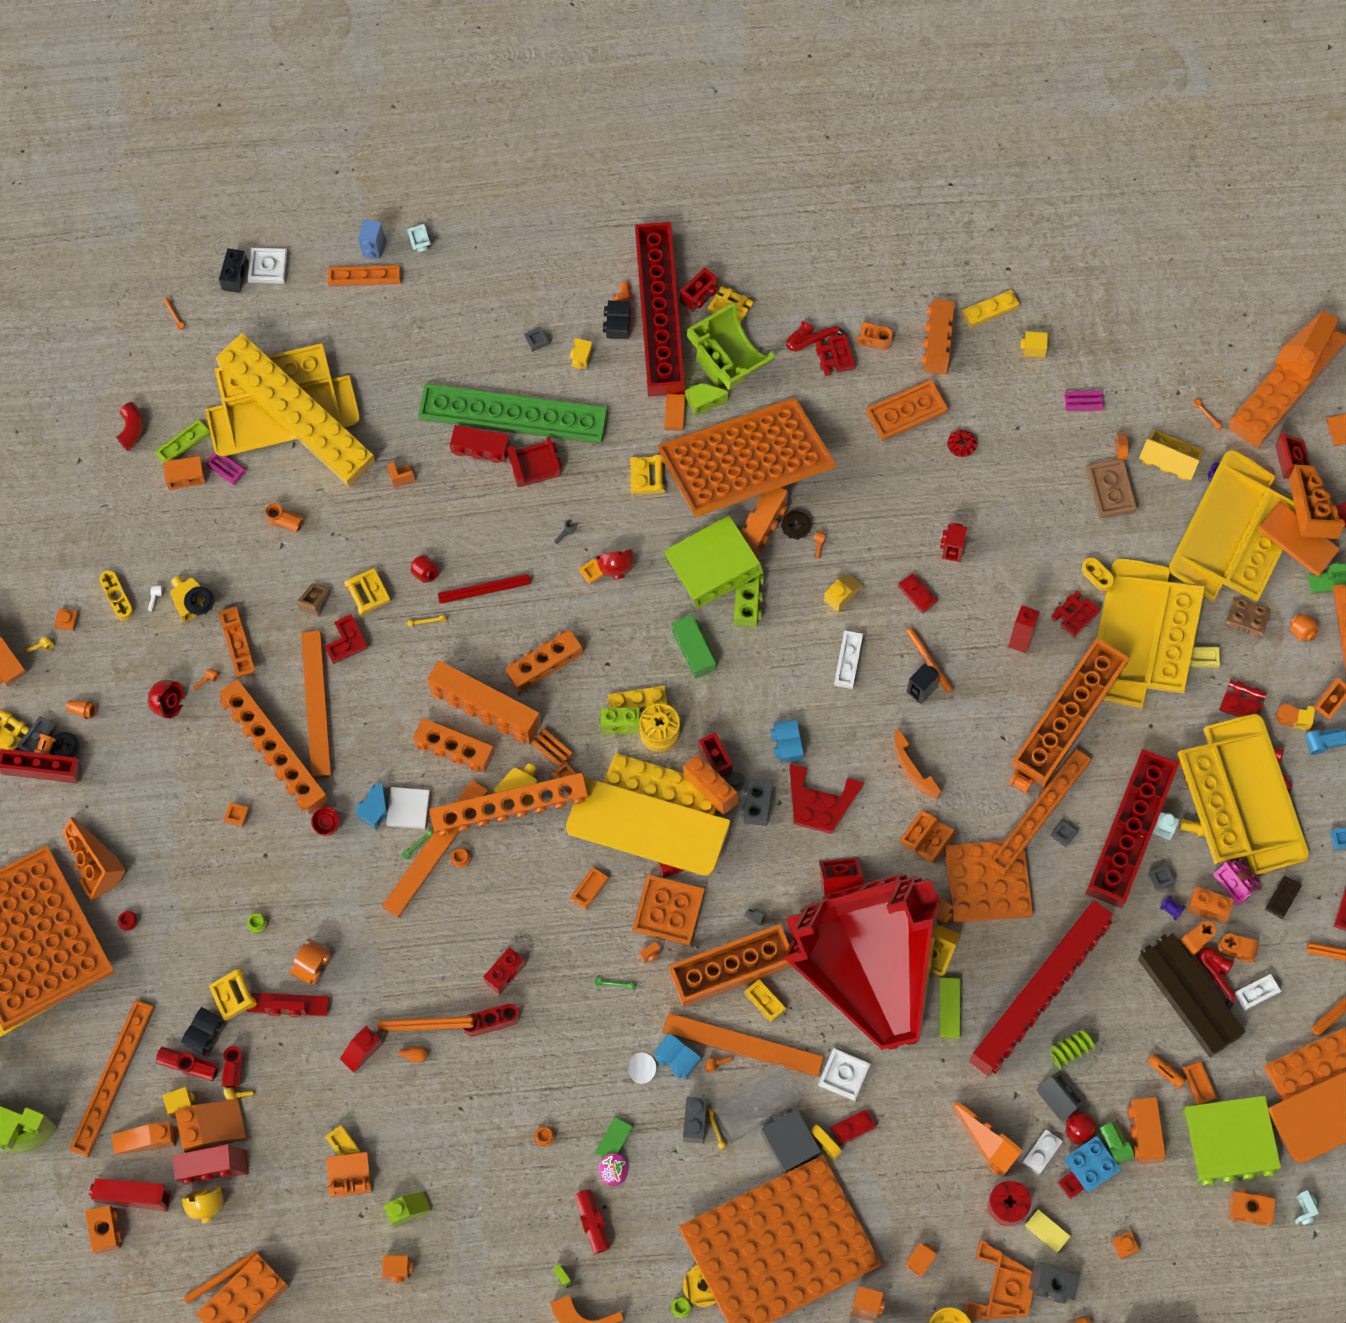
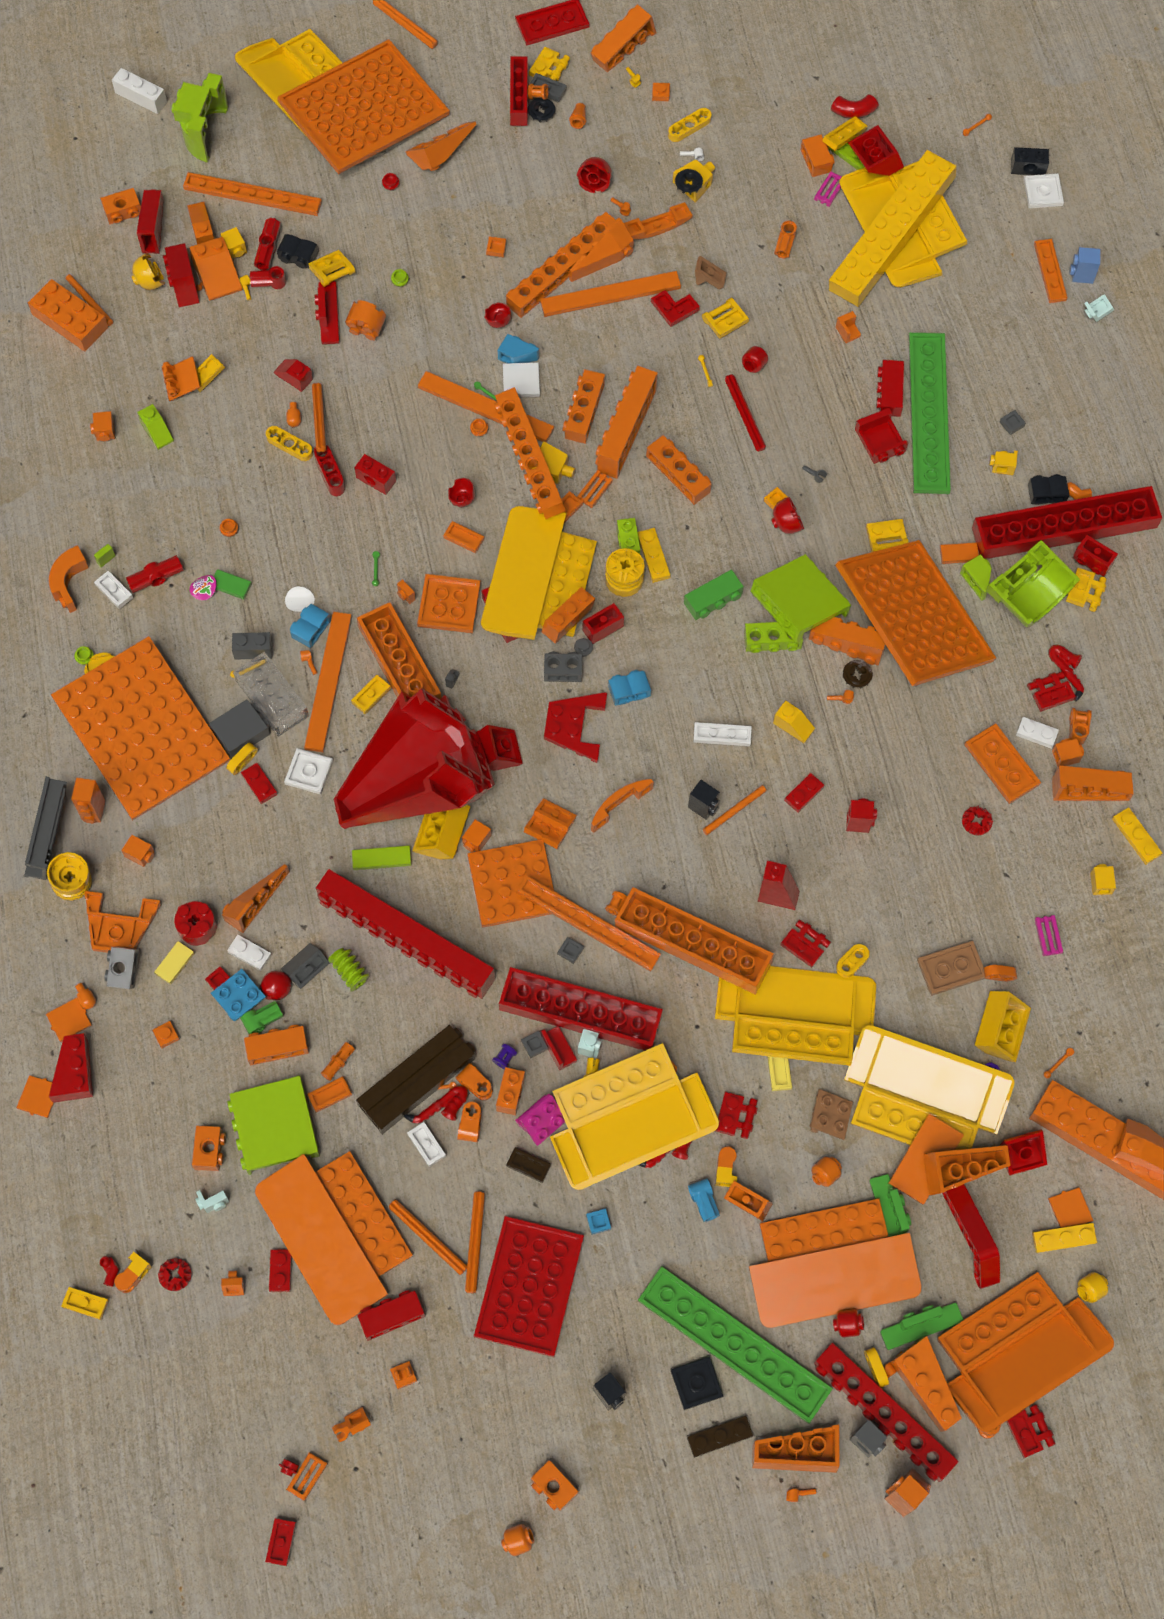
camera: 80 degrees right, 0 degrees up
(165, 439) = (844, 133): none -> yellow plate
(198, 411) = (876, 152): none -> red slope
(263, 693) = (609, 250): none -> orange wedge
(461, 1053) = (285, 436): none -> yellow beam
(540, 882) = (462, 492): none -> red hair
(605, 1268) = (113, 590): none -> white plate
(876, 375) = (1037, 732): none -> white plate
(902, 351) = (1068, 752): none -> orange brick
(1166, 855) = (558, 1048): none -> red panel

